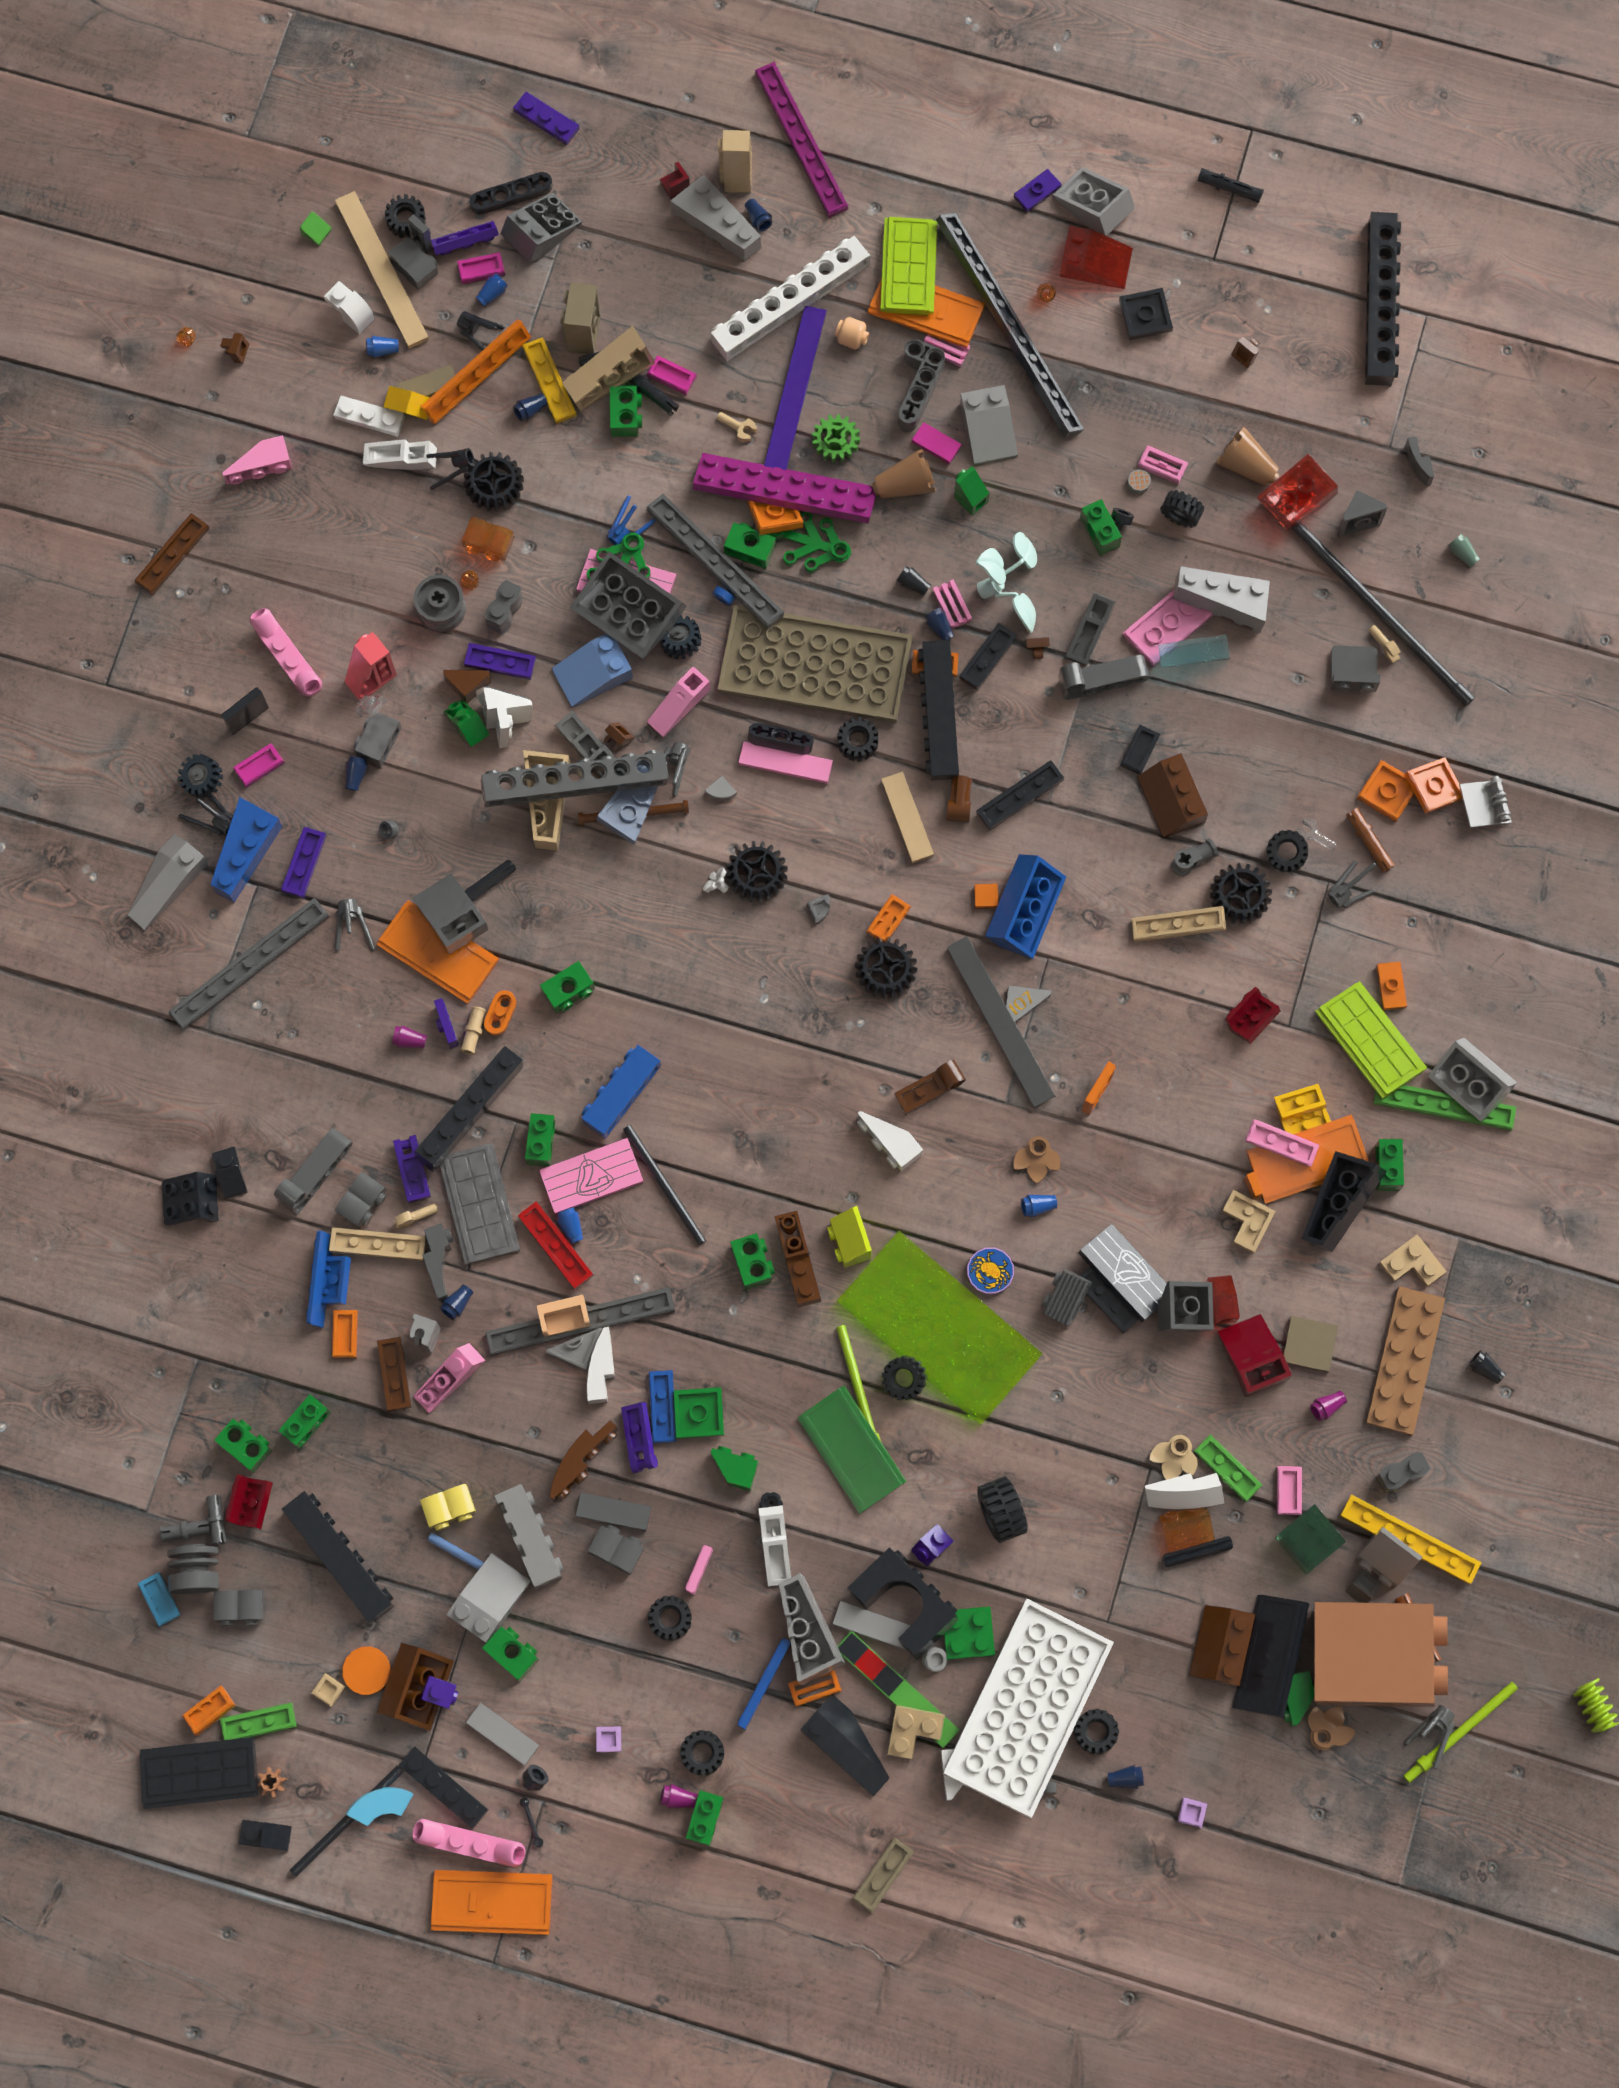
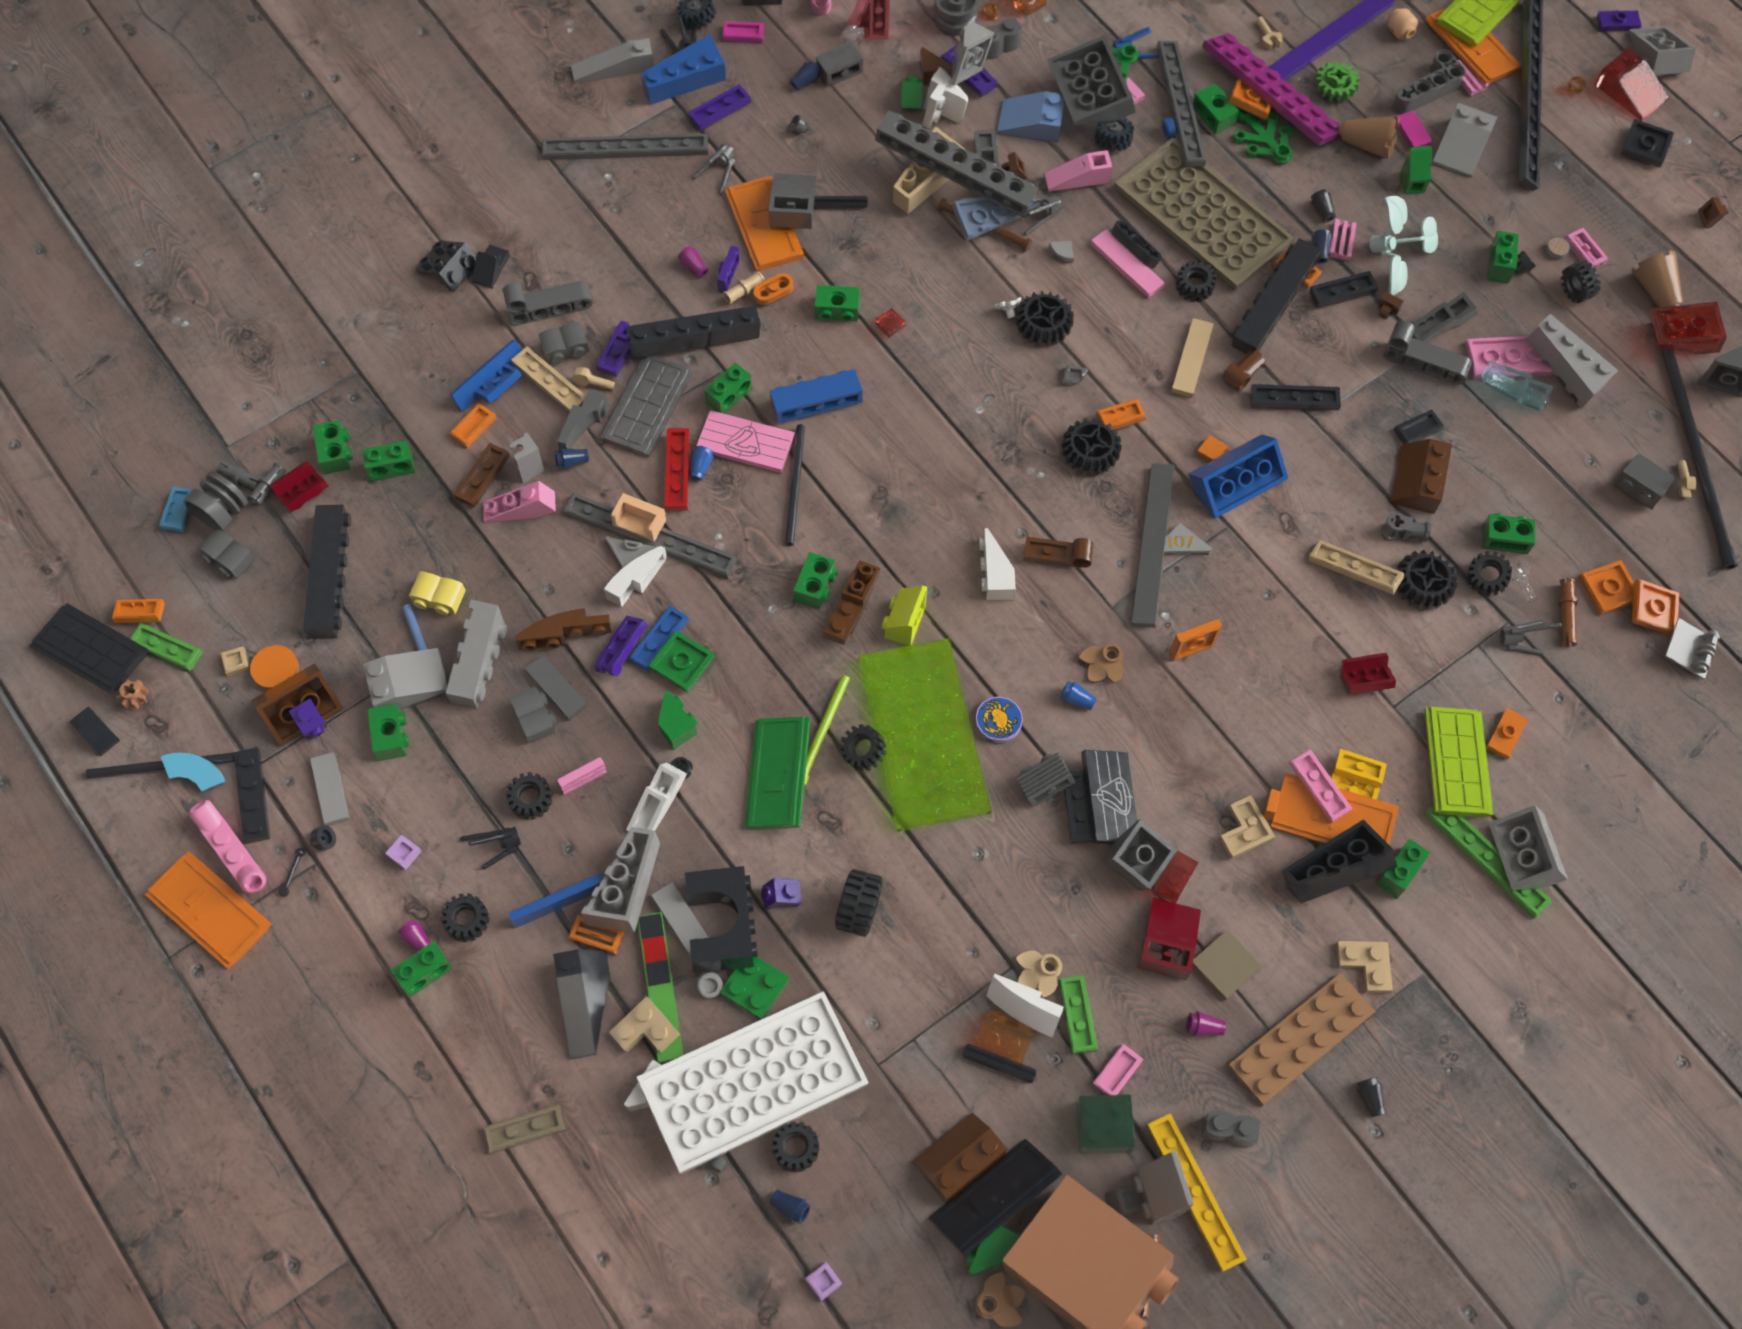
camera: 35 degrees right, 10 degrees down
(497, 654) = (971, 52): none -> light grey slope
(627, 972) = (890, 322): none -> clear red plate
(681, 1665) = (507, 838): none -> black plant
(1281, 805) = (1508, 538): none -> green brick

